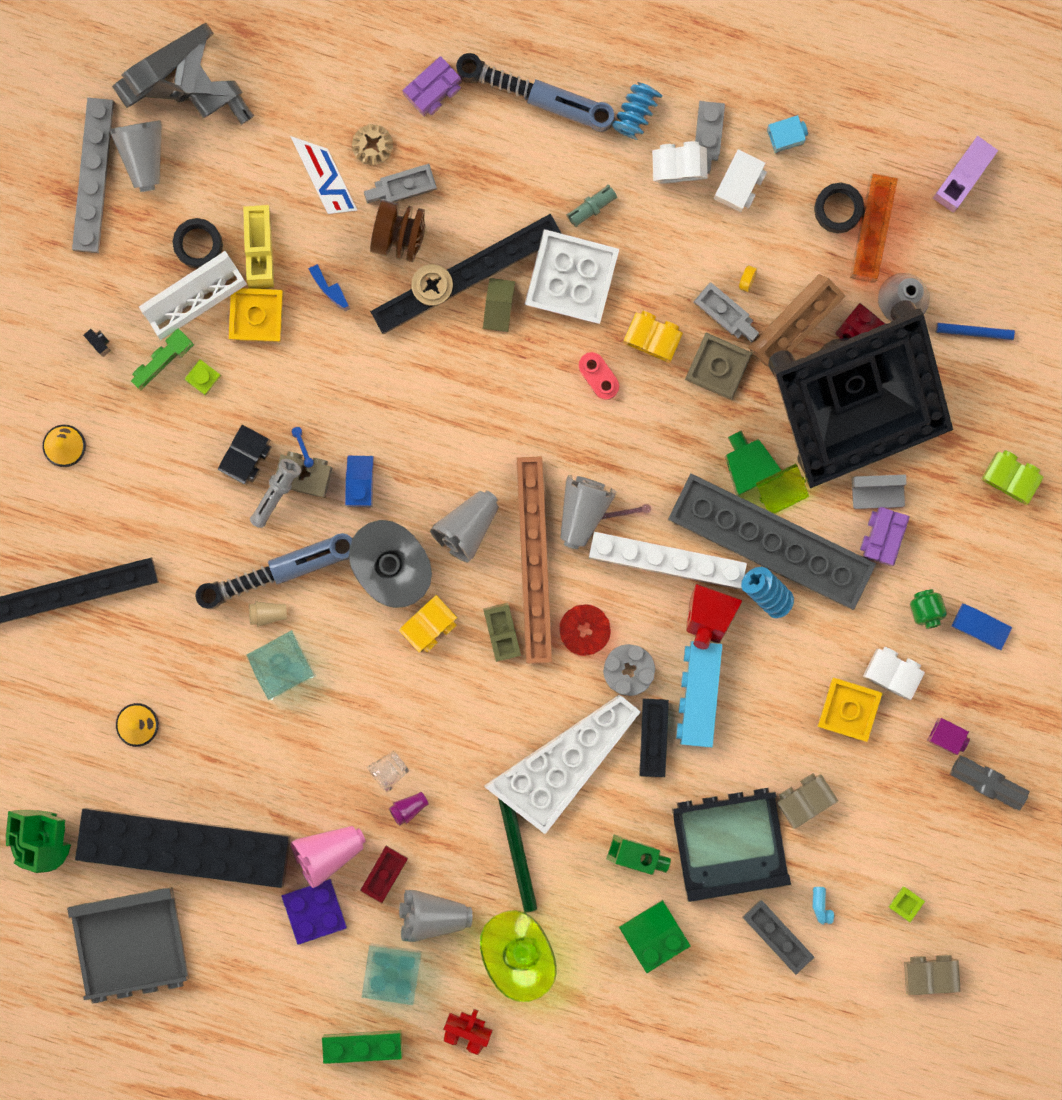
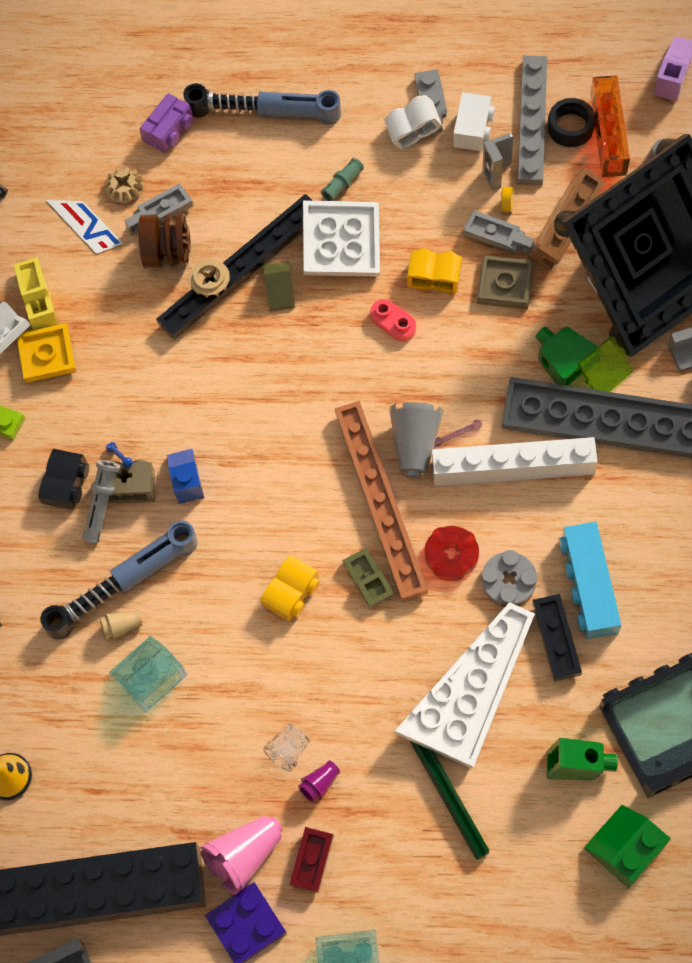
camera: 10 degrees left, 20 degrees down
(333, 292) = (115, 312): blue slope -> none
(390, 564) = (234, 536): dark grey hat -> none
(431, 916) = (375, 888): light grey cone -> none
(466, 525) = (301, 484): light grey cone -> none
(518, 956) = (484, 905): clear neon green hat -> none
(635, 110) = (359, 93): dark azure piece -> none
(710, 615) = (574, 498): red torso -> none
(743, 235) = (496, 155): none -> light grey panel
(768, 592) = (625, 460): dark azure piece -> none
(787, 133) = (502, 76): medium azure brick -> none
(802, 190) = (532, 120): none -> light grey plate

